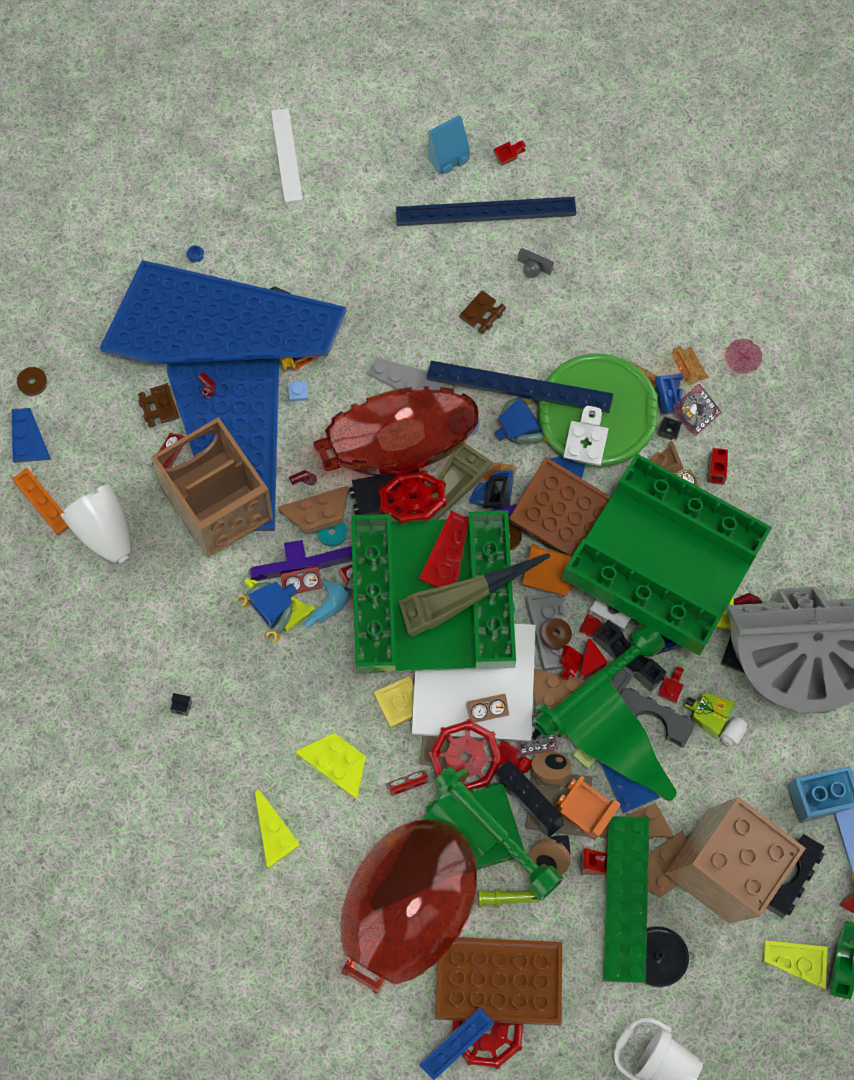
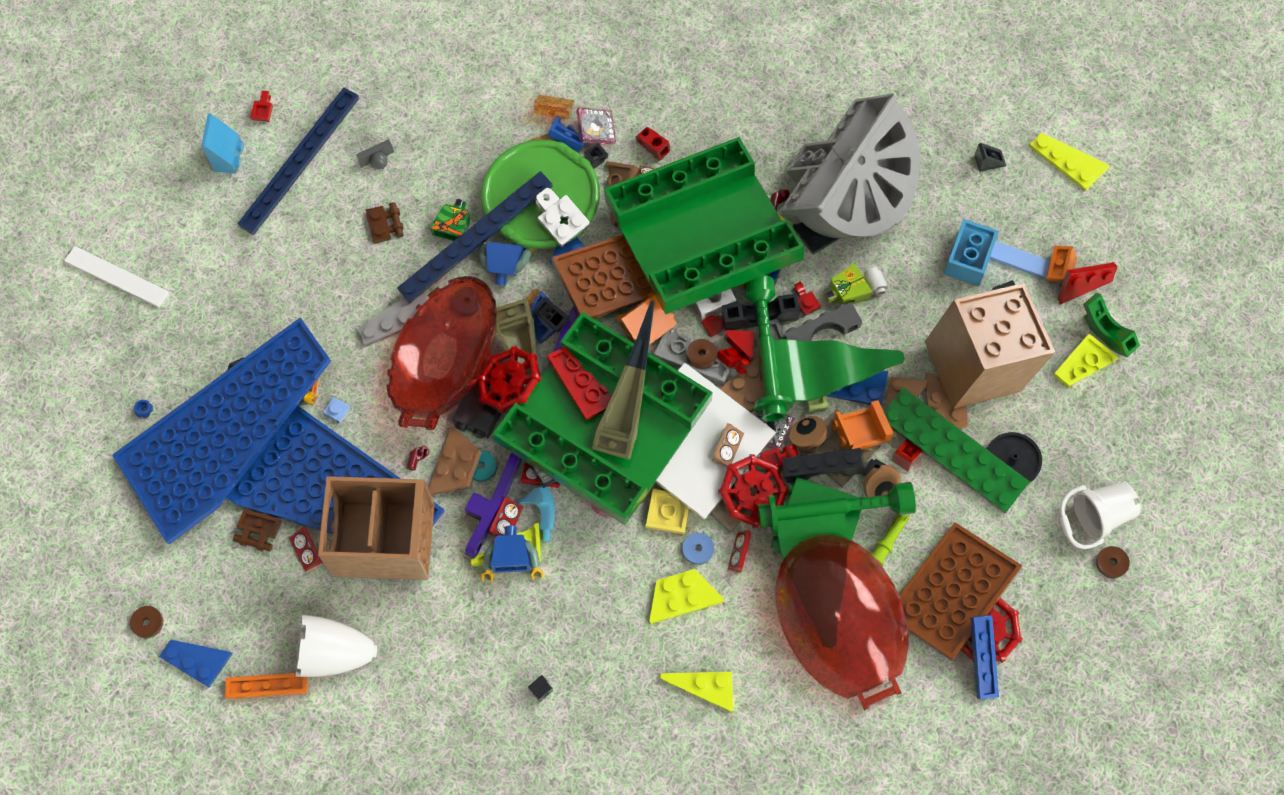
camera: 50 degrees left, 0 degrees up
(209, 385) = (274, 475): dark red arm -> none
(382, 739) = (693, 556): none -> medium blue piece
(522, 360) = (451, 221): none -> torso
(743, 356) = (577, 64): clear pink tile -> none

